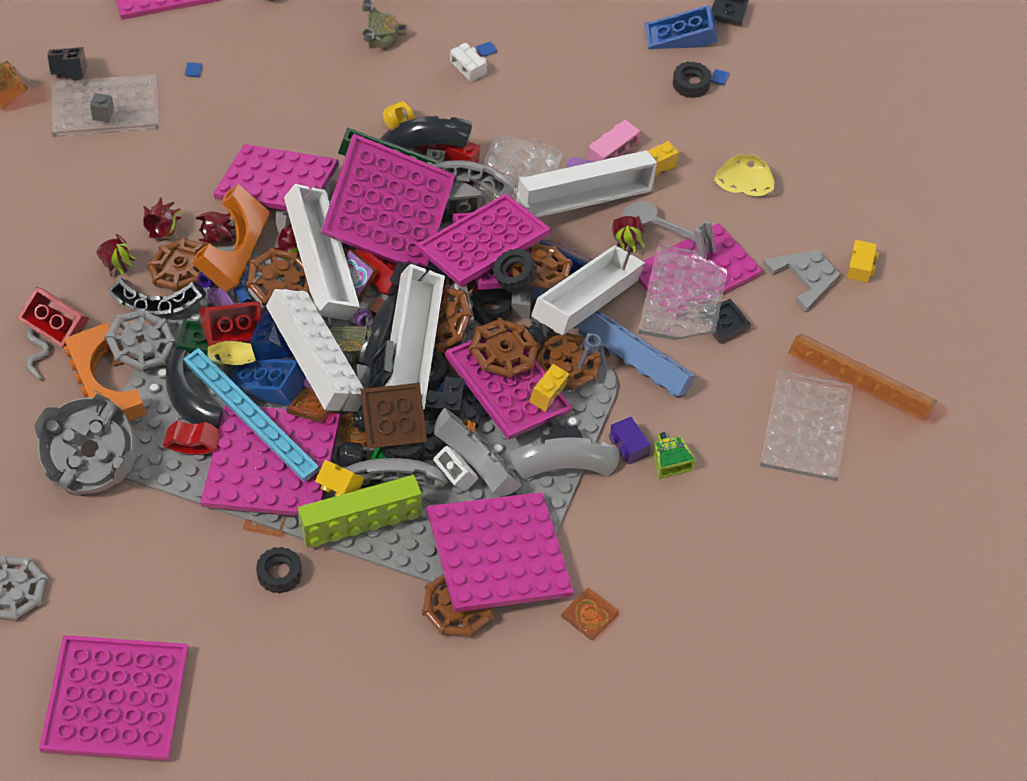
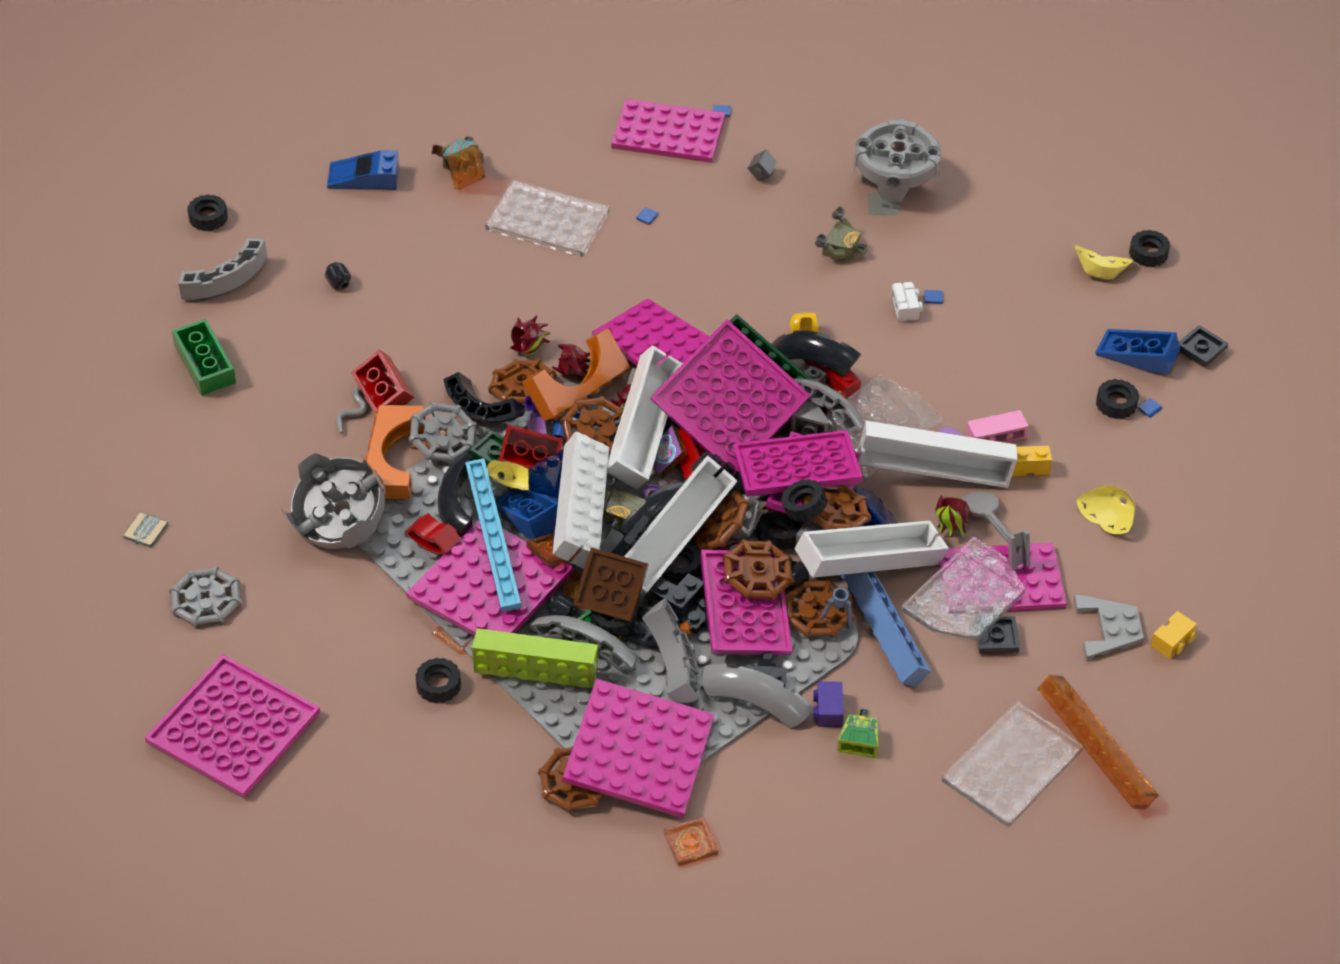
camera: 30 degrees right, 5 degrees down
(67, 63) = (535, 168): black brick -> none
(102, 107) = (538, 218): dark grey brick -> none
(115, 254) = (468, 351): dark red hair -> none
(338, 479) = (530, 620): yellow brick -> none
(455, 468) = (646, 658): white brick -> none
(549, 387) = (776, 621): yellow brick -> none

